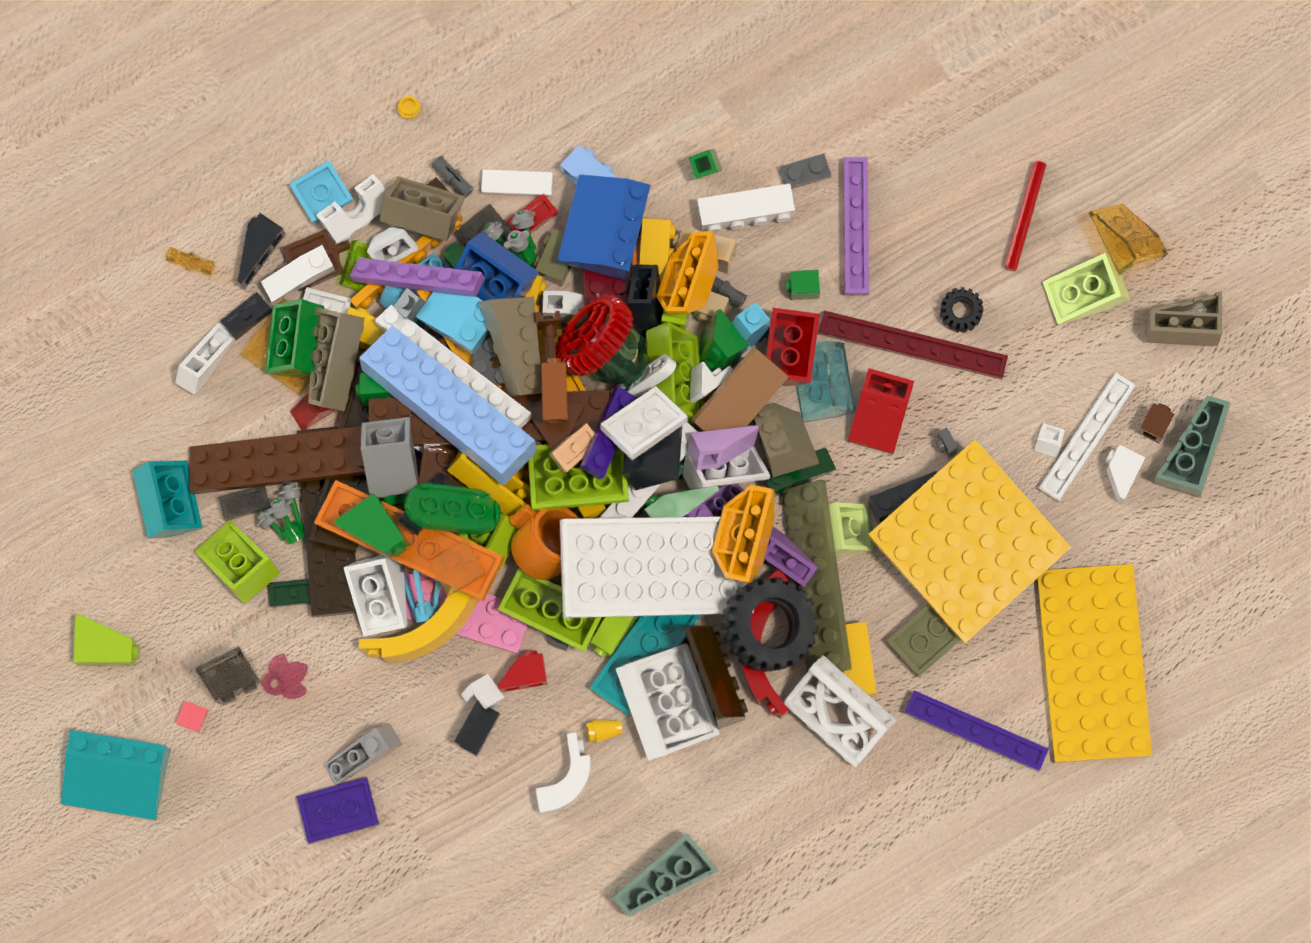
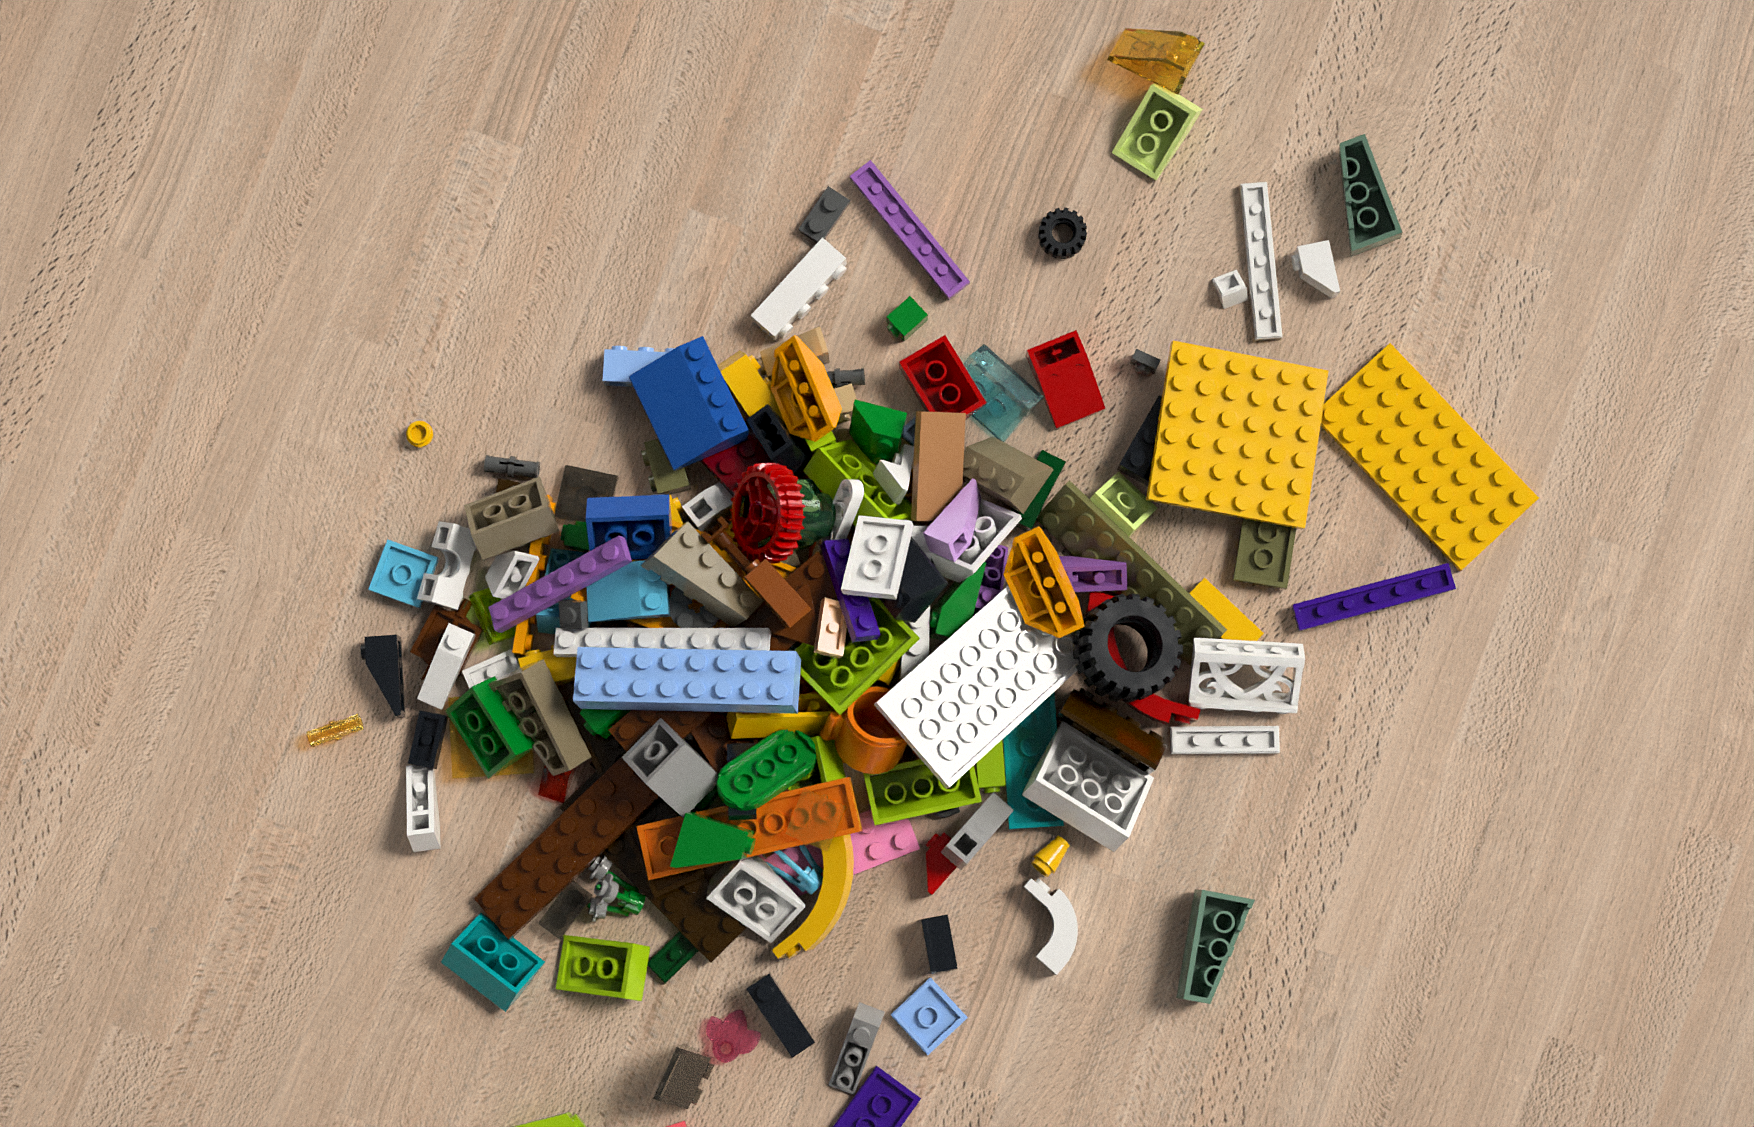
camera: 40 degrees left, 5 degrees up
(330, 689) = (780, 1015): none -> black slope
(430, 772) = (929, 1016): none -> light blue tile
(485, 691) = (922, 907): white panel -> none
(517, 183) = (574, 426): white tile -> none
(518, 242) = (624, 481): light grey plant -> none
(543, 211) = (613, 447): red plate -> none
(564, 669) = (977, 831): none -> light grey slope
(705, 163) = (731, 278): green brick -> none
(752, 325) = (893, 390): medium azure slope -> none
(790, 747) = (1224, 740): none -> white tile
(913, 345) = (1044, 297): dark red tile -> none
(1025, 216) = (1050, 105): red axle -> none
(1156, 422) = (1311, 201): reddish brown brick -> none
(1187, 322) = (1269, 91): dark tan wedge -> none

